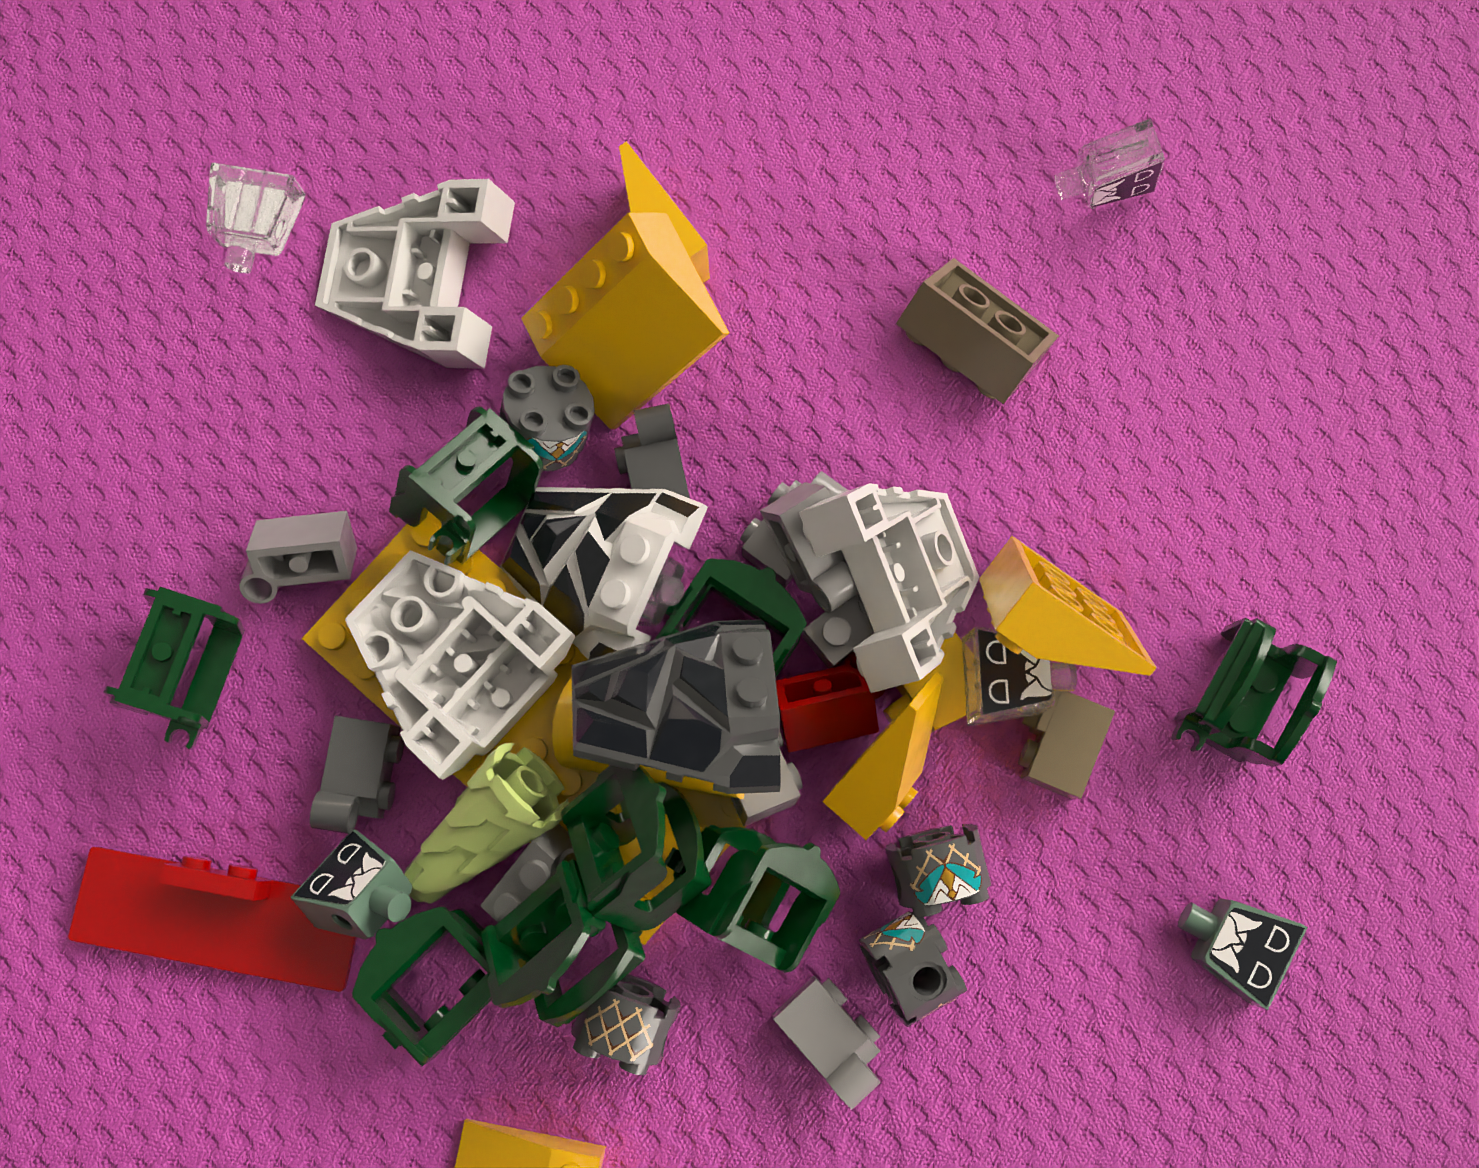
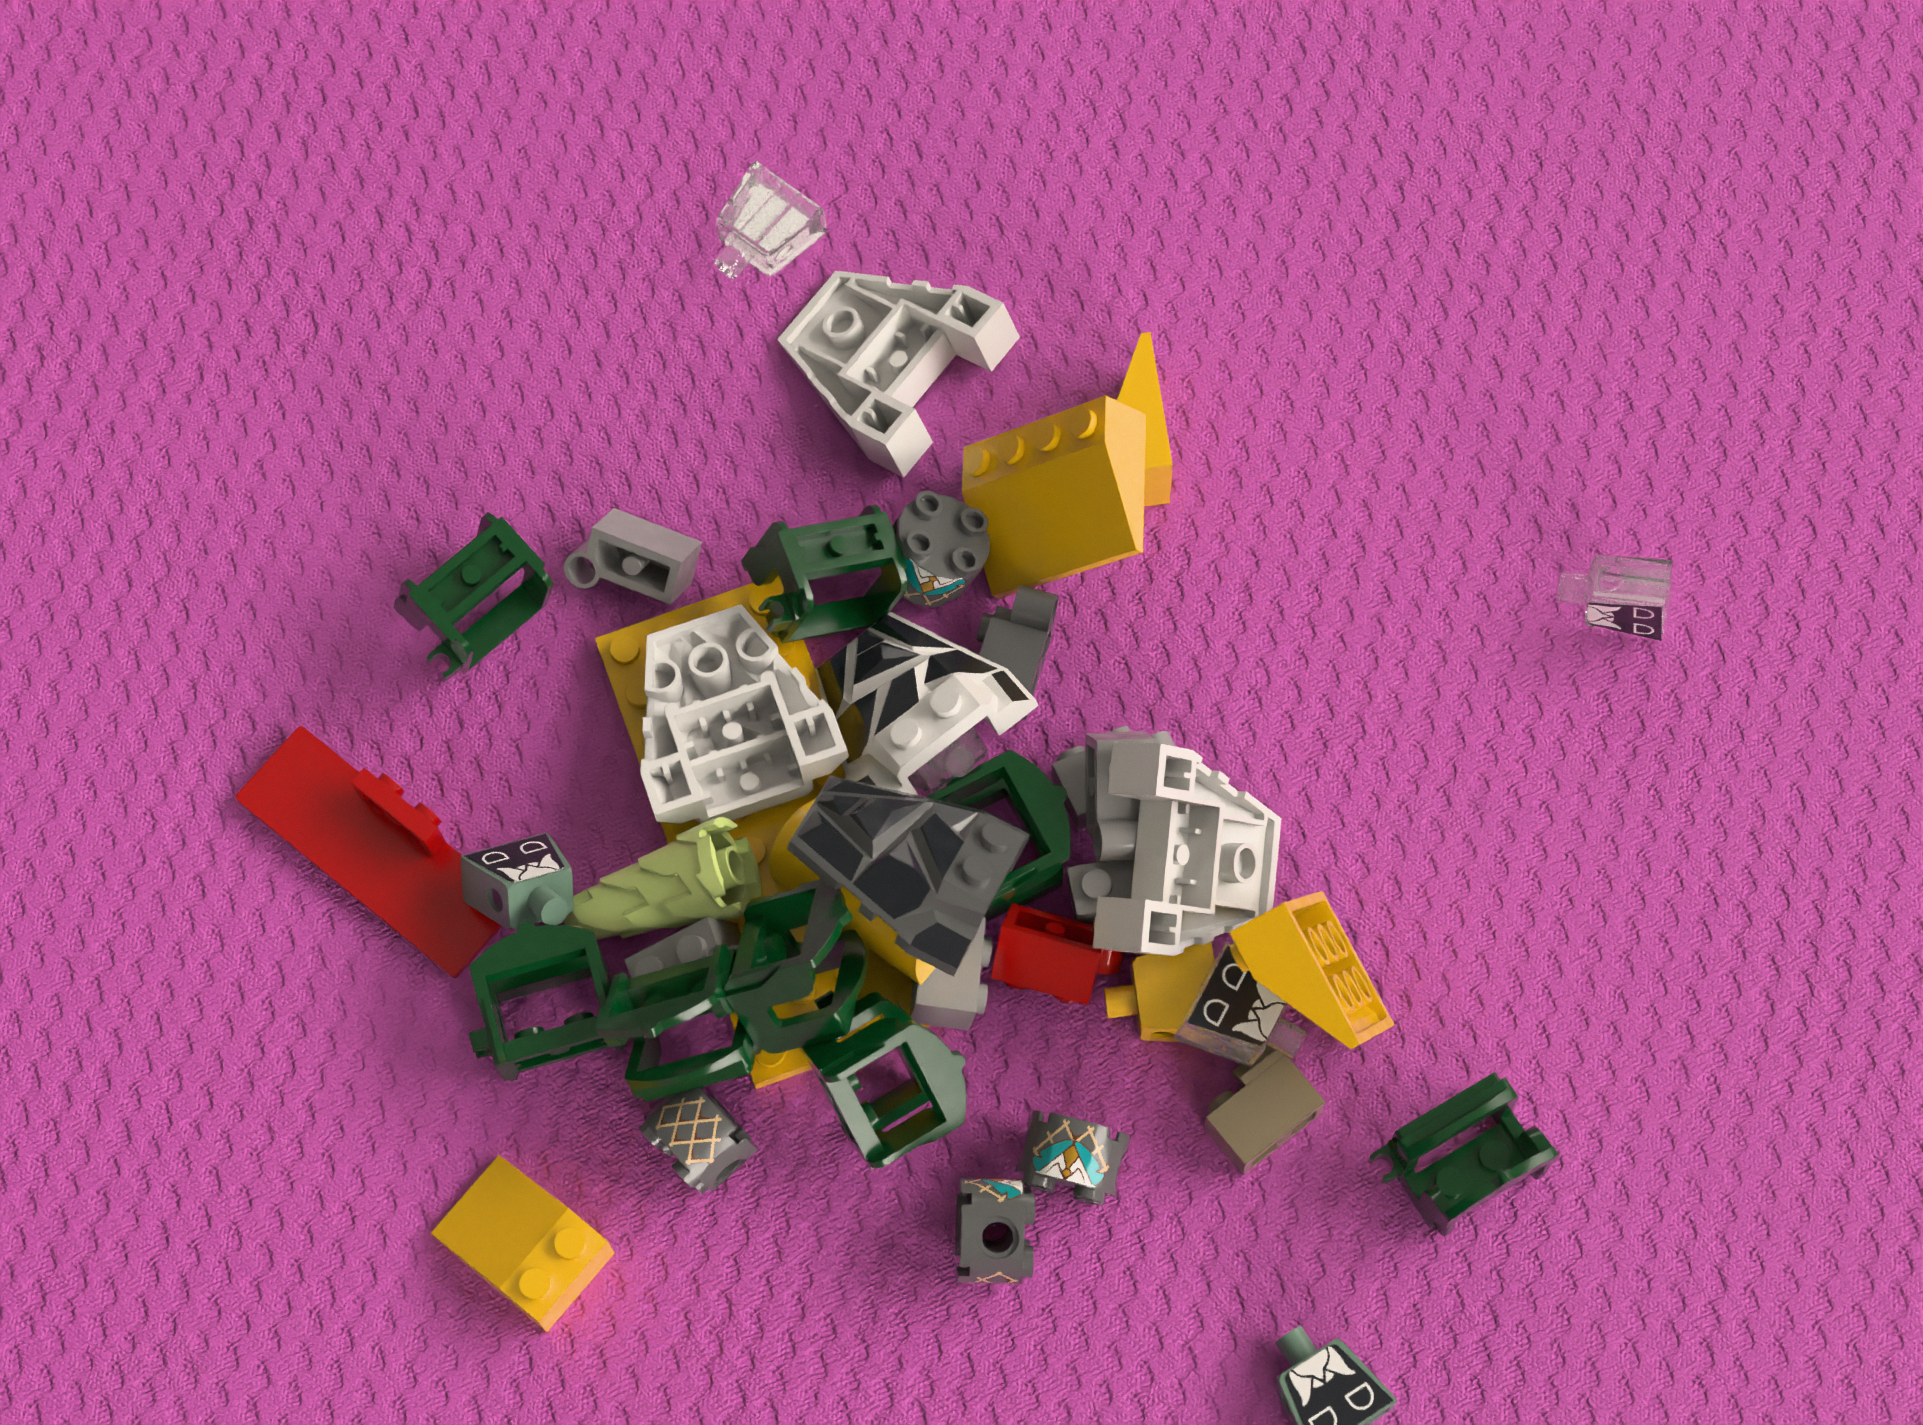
camera: 30 degrees right, 10 degrees down
(357, 774) = (579, 785): dark grey hinge -> none
(831, 1038) = (881, 1258): light grey hinge -> none
(882, 778) = (1079, 1026): yellow slope -> none
(976, 330) = (1401, 681): dark tan slope -> none

